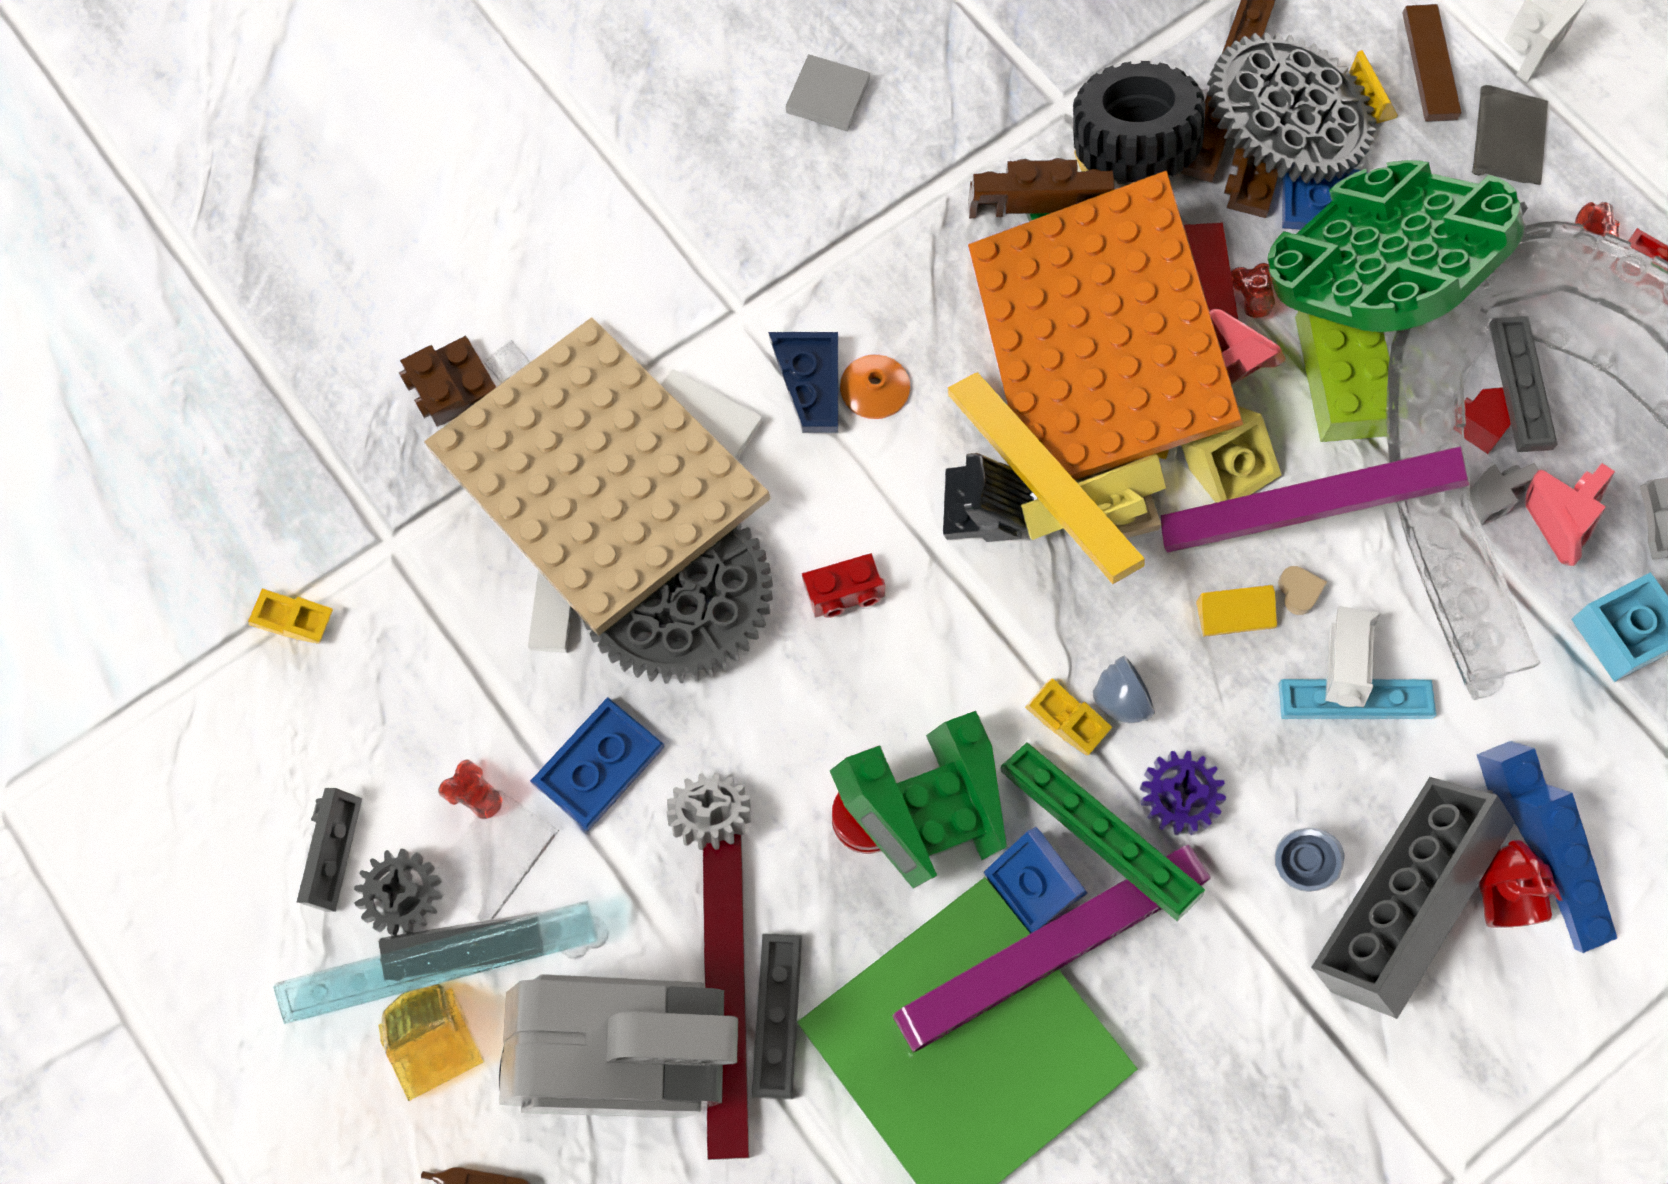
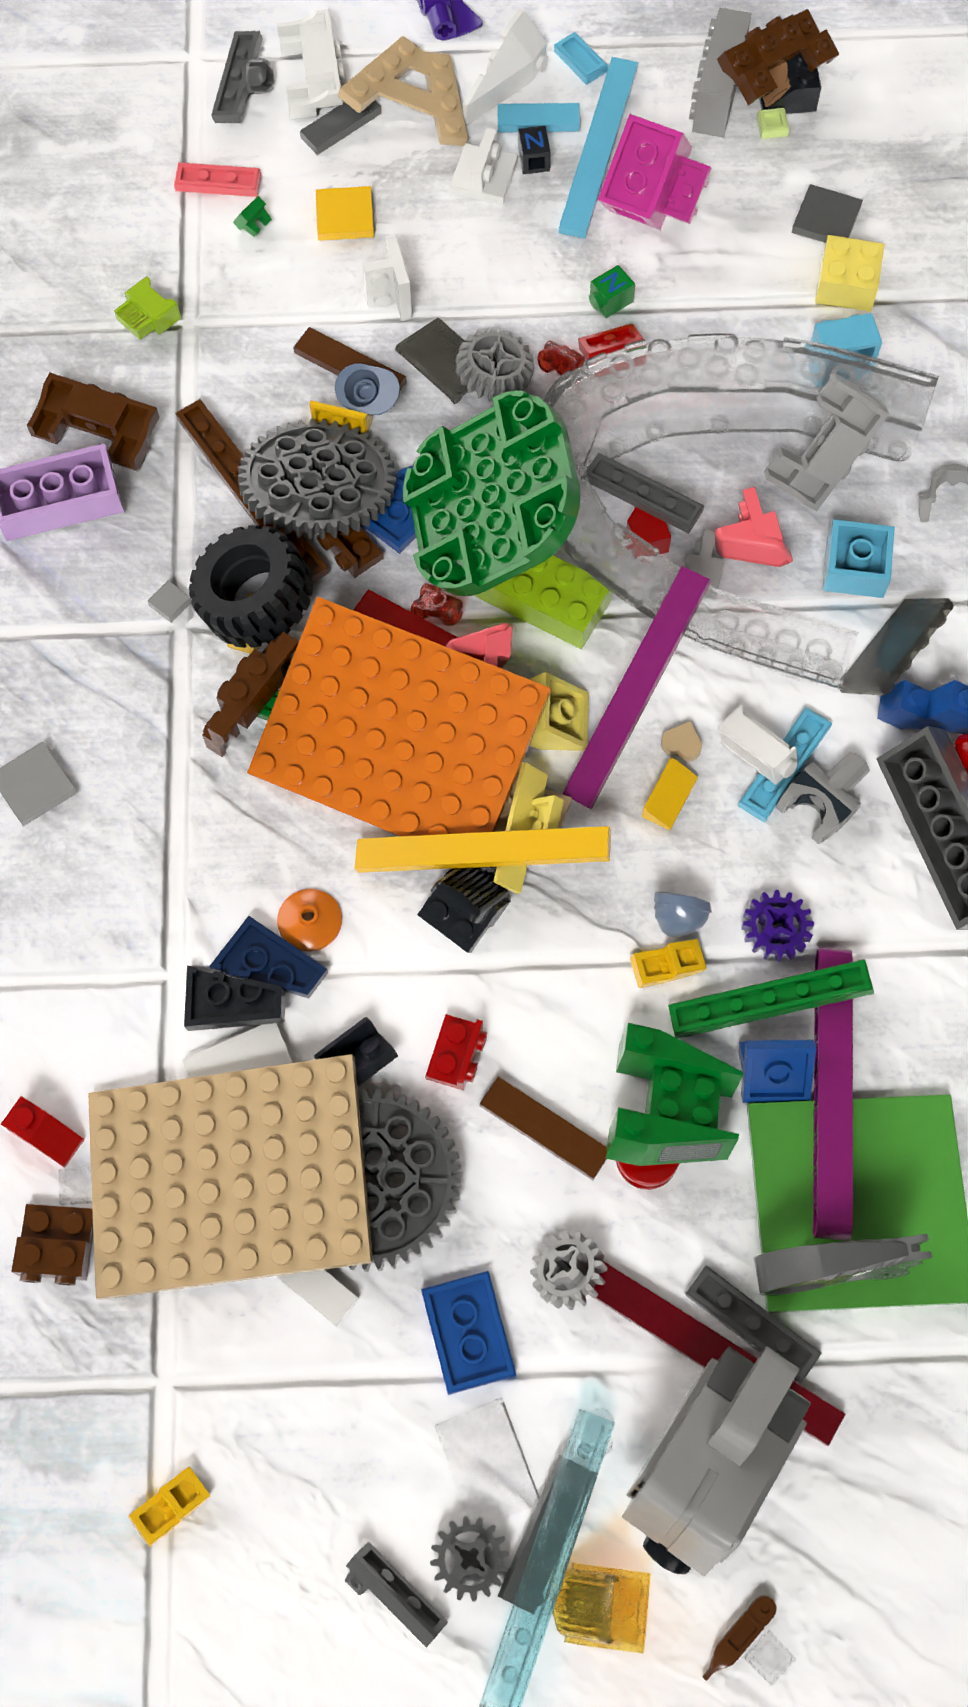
camera: 55 degrees left, 0 degrees up
(471, 790) = (424, 1446): clear red plate -> none
(533, 303) = (42, 1131): none -> red slope
(749, 369) = (228, 1002): none -> black wing
(790, 503) = (367, 1046): none -> black bracket
(828, 705) = (545, 1128): none -> reddish brown tile
(876, 1049) = (837, 1263): none -> dark grey animal
(1073, 76) = (169, 601): none -> light grey tile
(1309, 859) = (882, 876): sand blue hat -> none
(1356, 755) = (827, 793): none -> light grey connector
(1414, 85) = (367, 389): none -> sand blue piece
(1543, 173) = (477, 361): none -> light grey gear
(1569, 721) = (896, 646): none -> clear smoke tile

